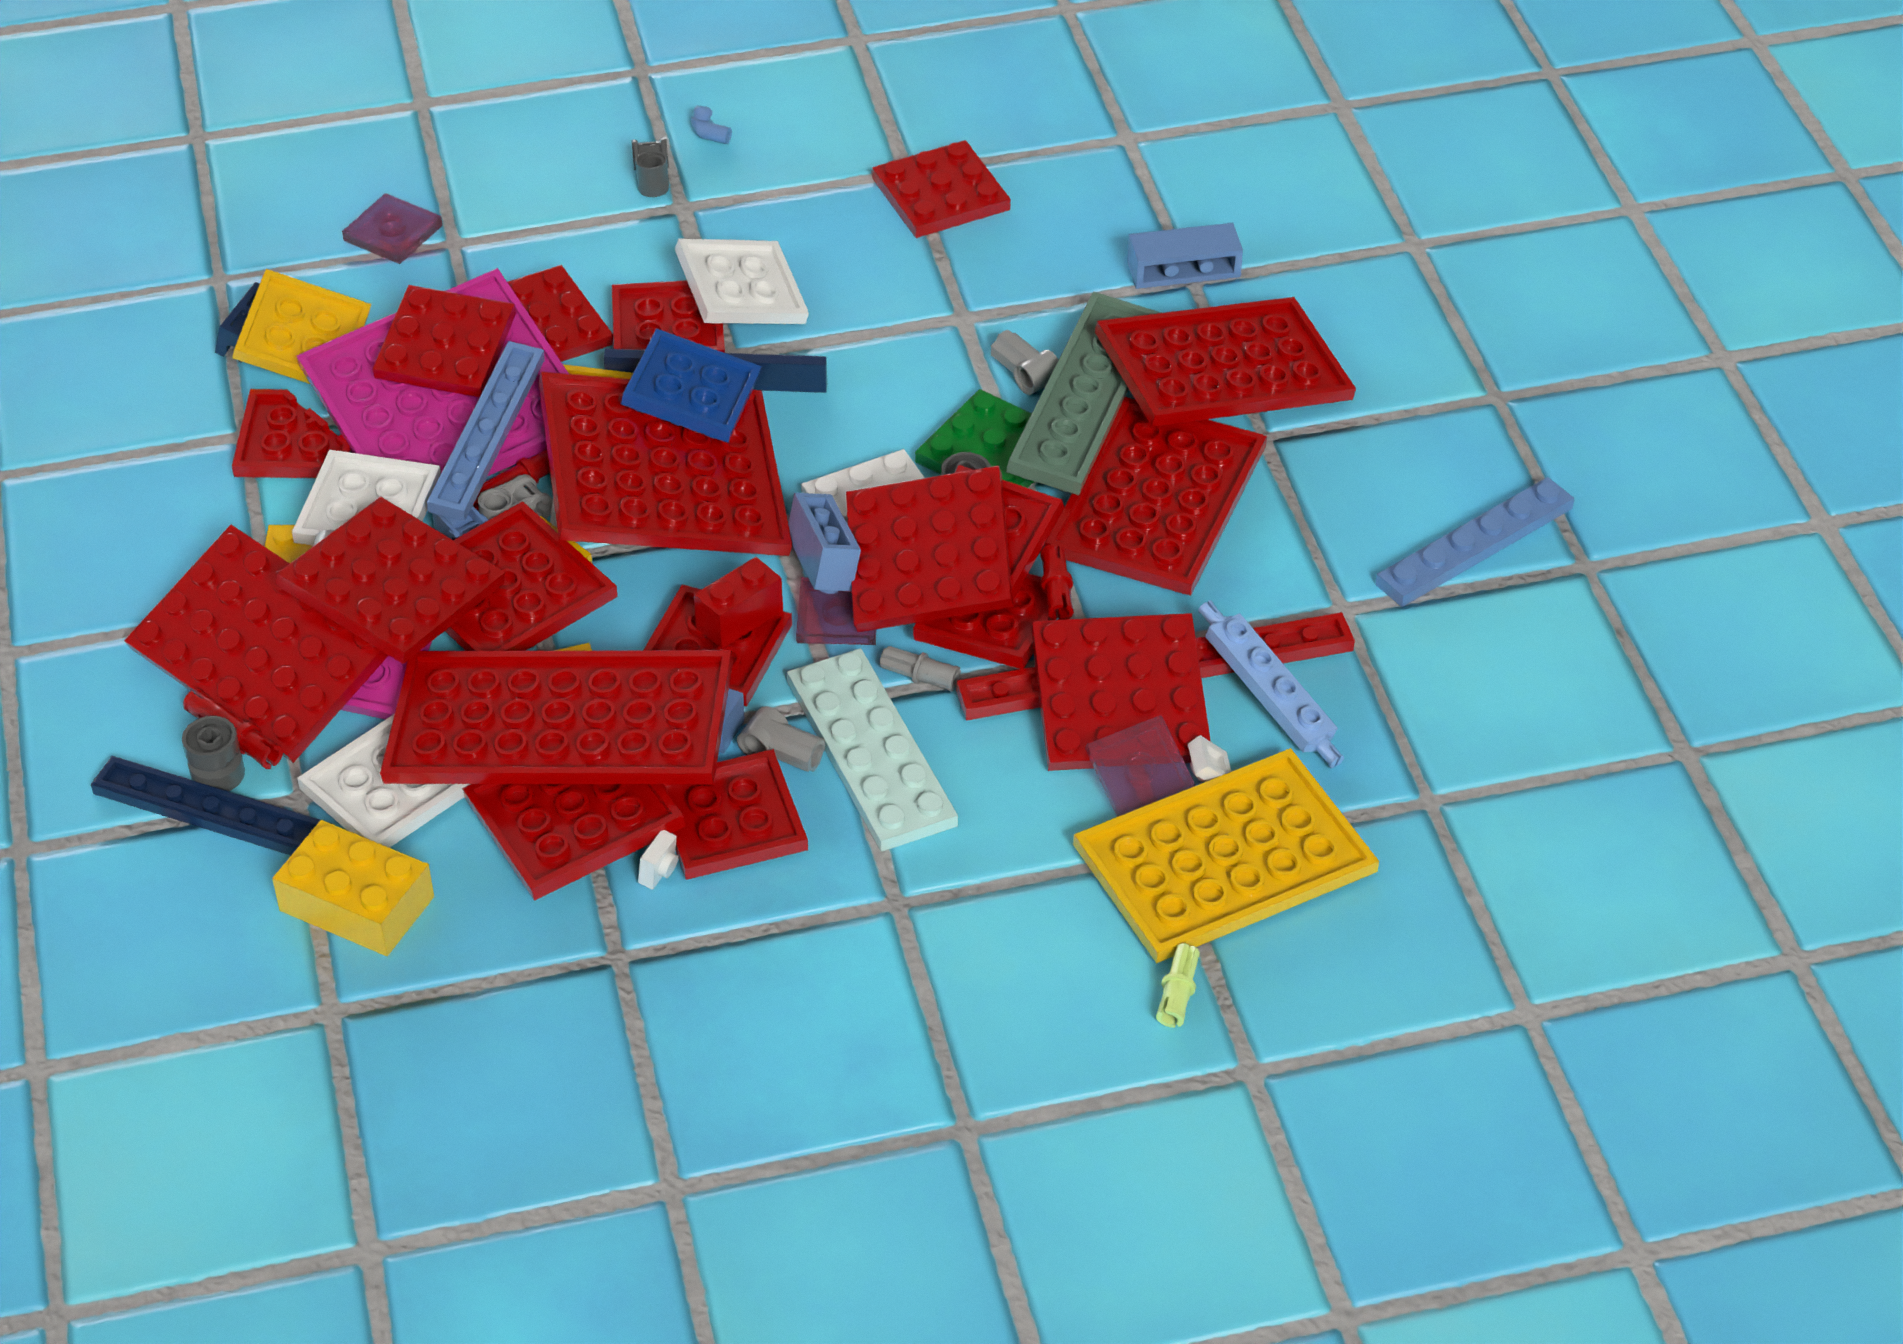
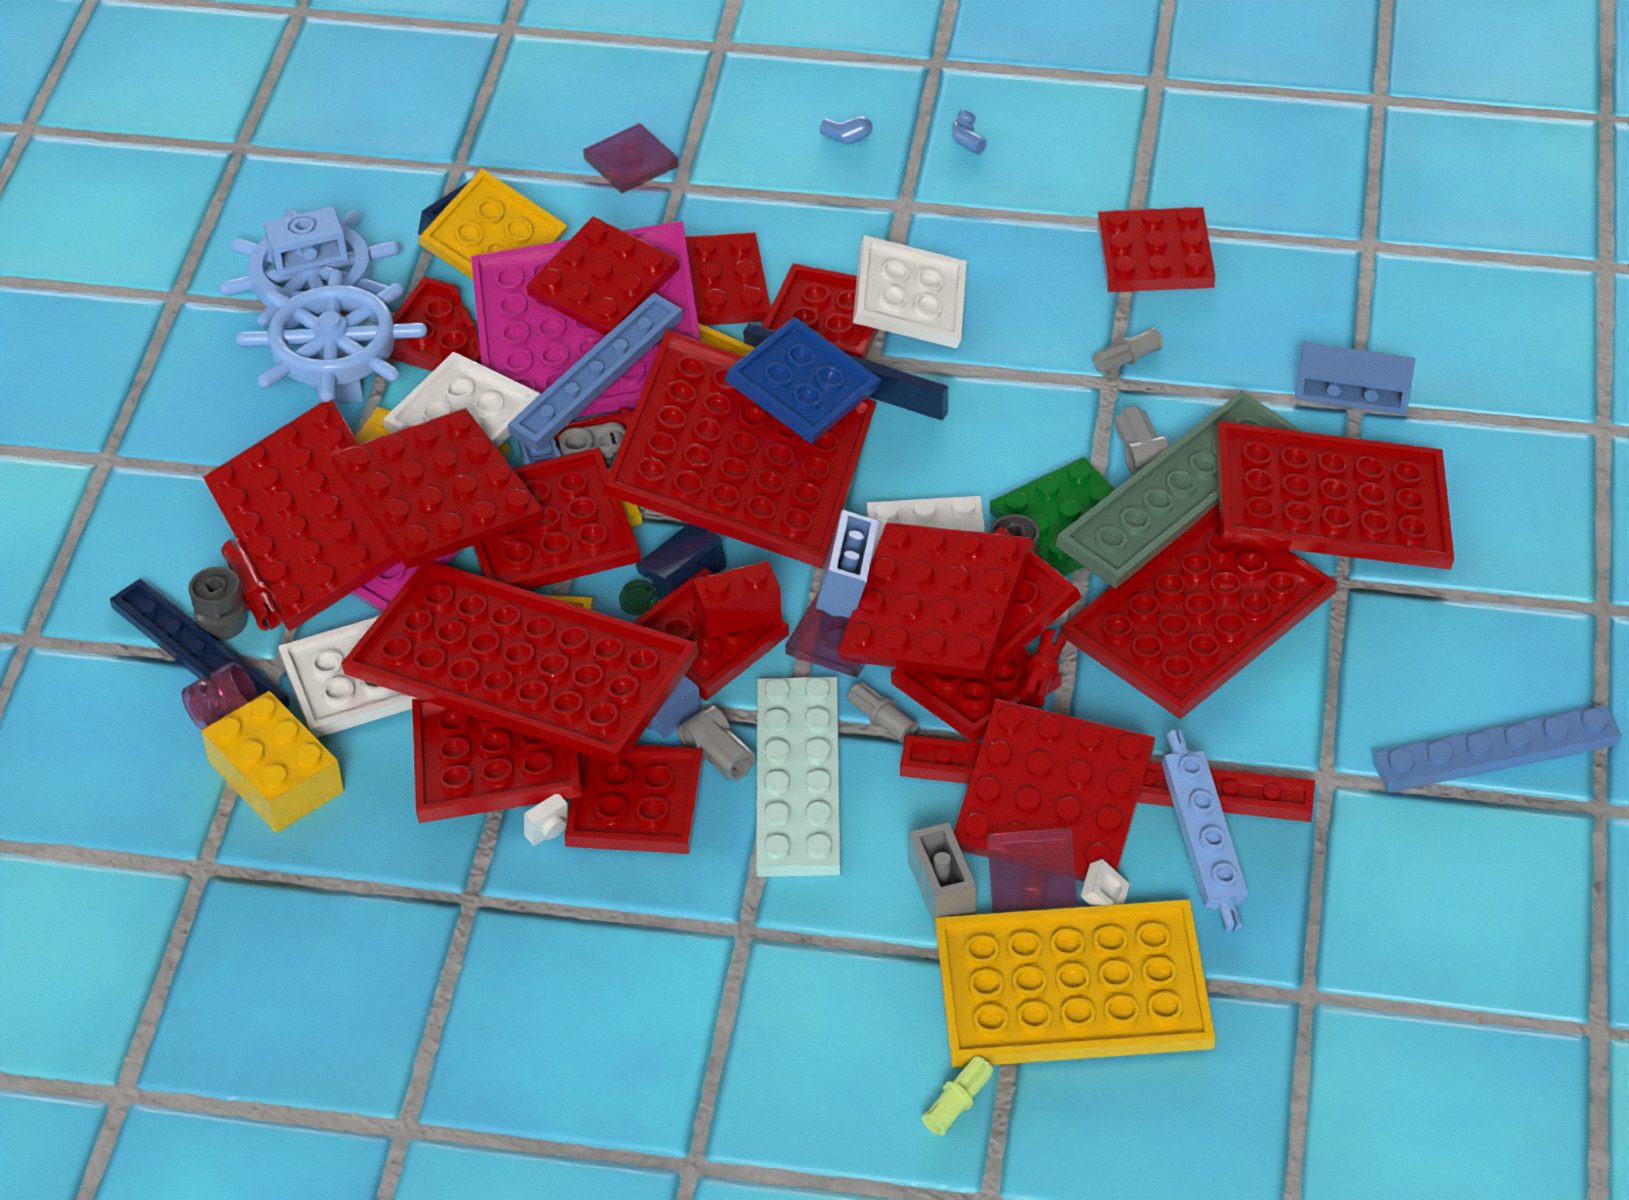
camera: 25 degrees right, 0 degrees up
(123, 397) = (304, 253): none -> light blue piece
(201, 481) = (334, 346): none -> light blue piece
(268, 842) = (223, 694): none -> clear pink wheel
(592, 153) = (848, 131): none -> medium blue arm
(630, 631) = (637, 597): none -> clear green plate
(651, 167) = (892, 158): dark grey piece -> none
(655, 585) = (682, 558): none -> dark blue hinge
(967, 284) = (1128, 350): none -> light grey axle
(1061, 792) = (941, 872): none -> light grey brick

